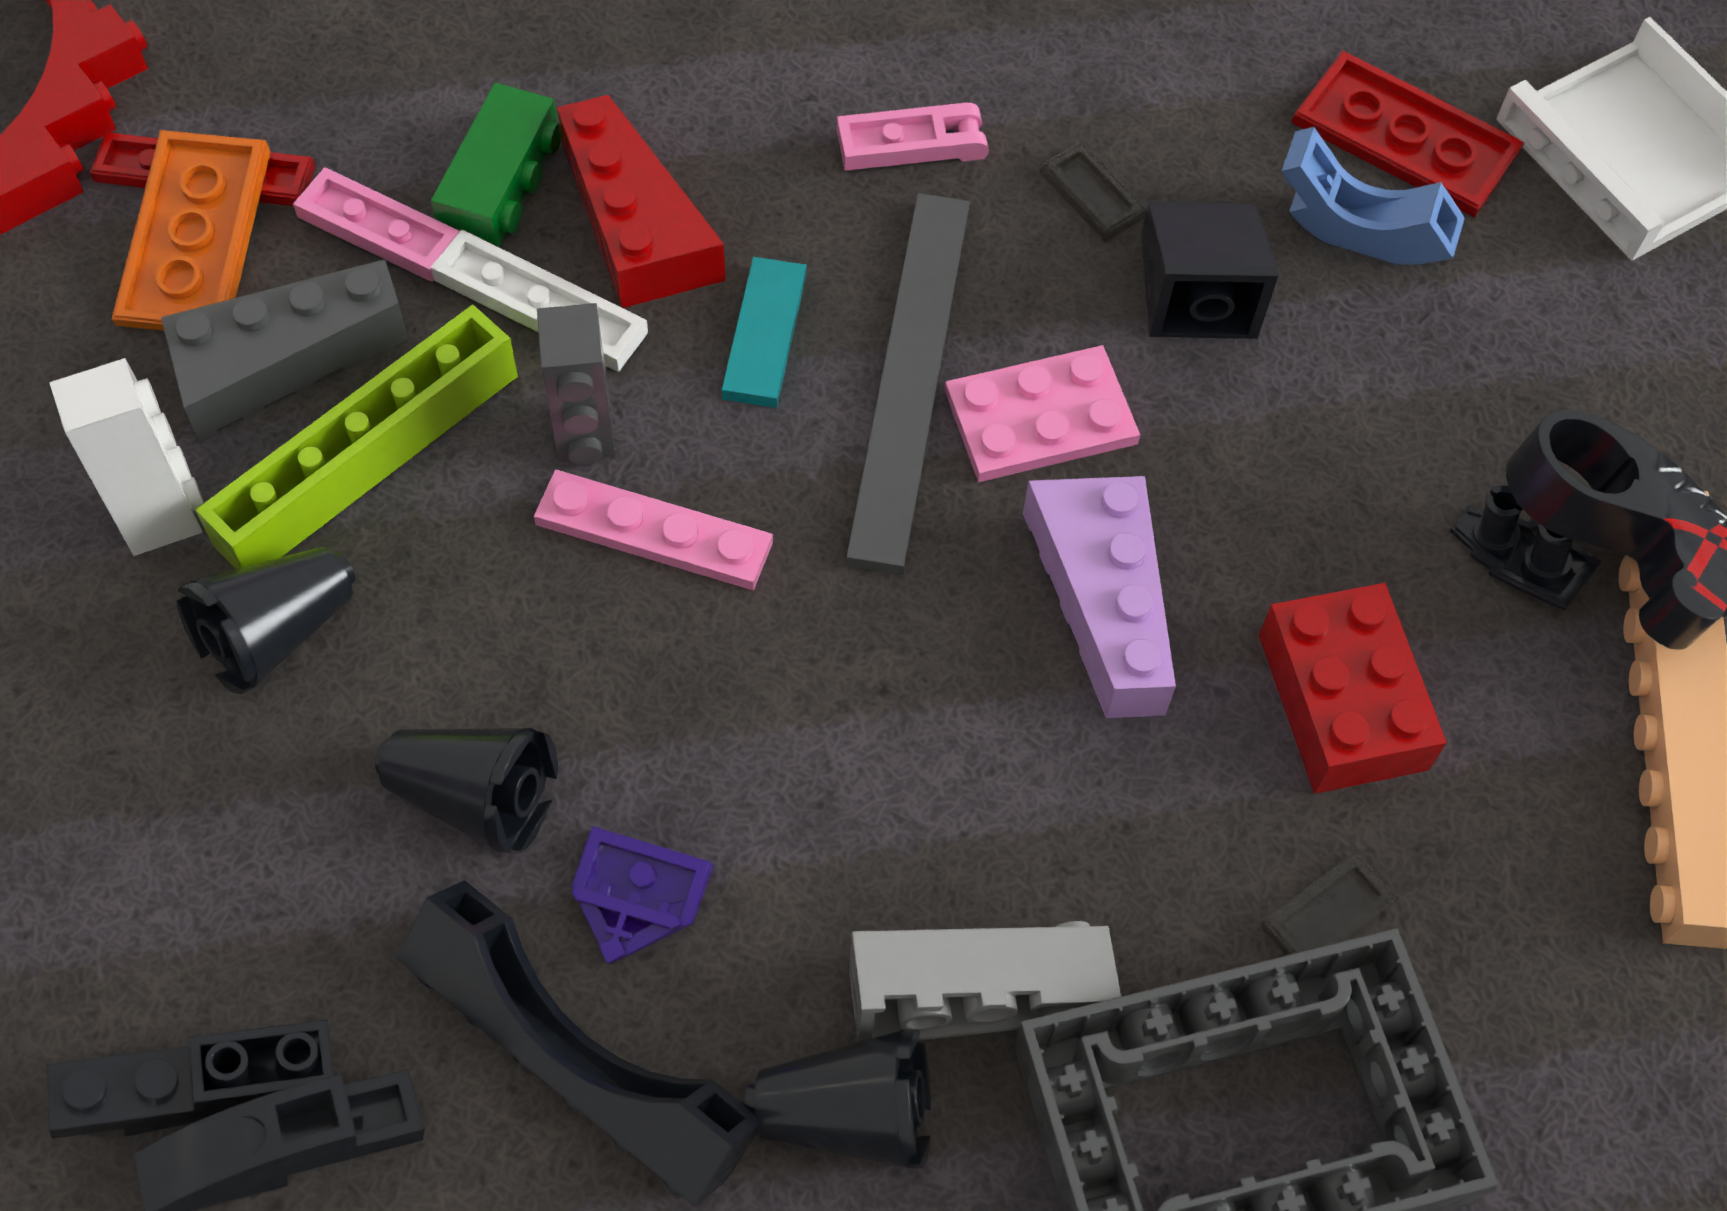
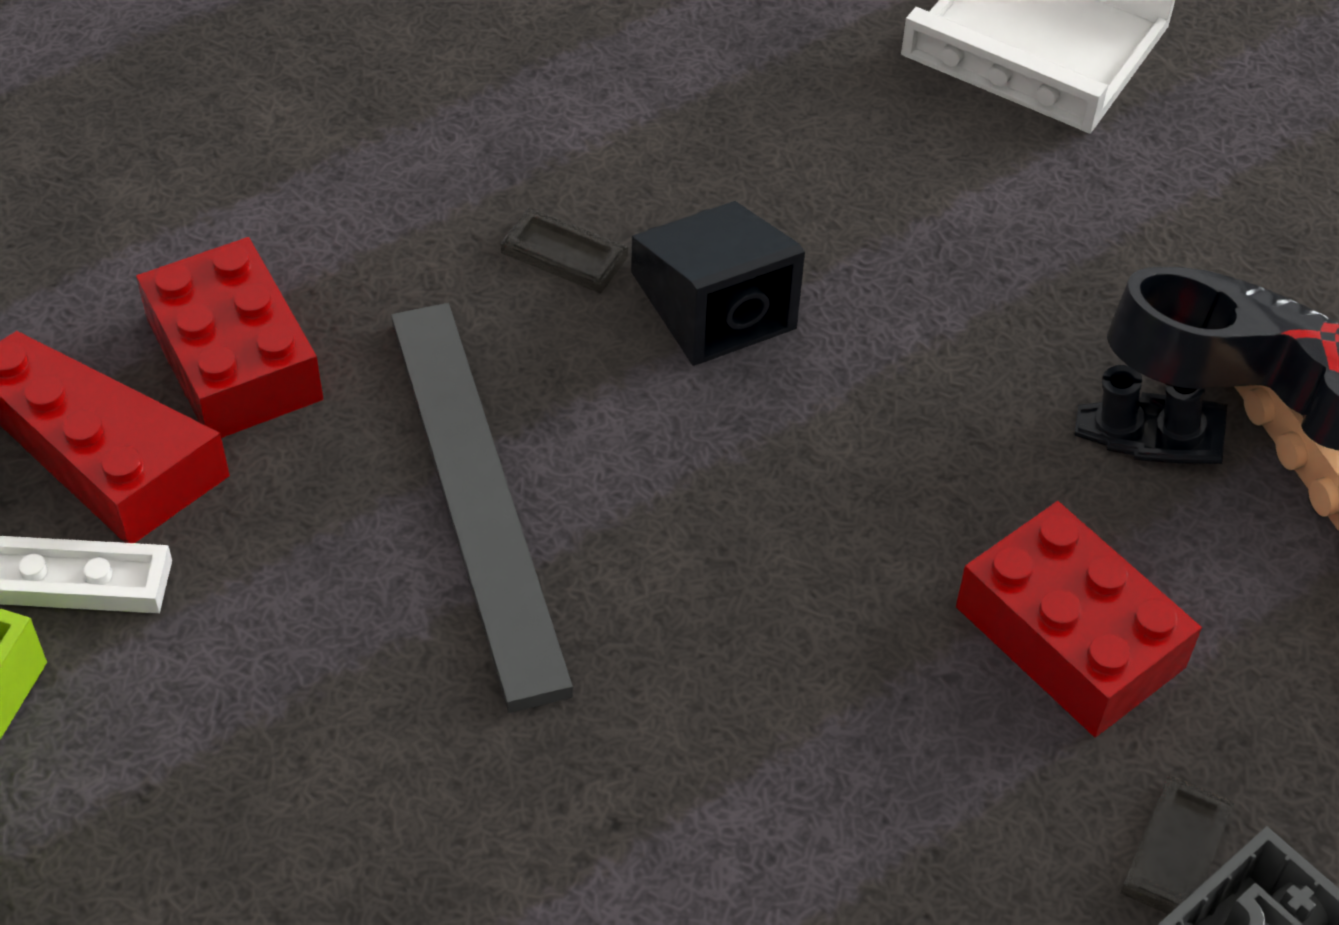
camera: 25 degrees left, 10 degrees down
(576, 382) = (133, 633): dark grey brick -> none
(654, 529) = (280, 761): bright pink plate -> none
(764, 332) = (300, 511): teal tile -> none
(775, 164) = (230, 337): none -> red brick
(911, 136) = (355, 263): bright pink plate -> none
(1041, 413) = (627, 480): bright pink plate -> none
(1106, 573) = (794, 619): lavender wedge -> none
(1381, 223) = (839, 181): medium blue arch -> none
(1408, 132) = (830, 93): red tile -> none

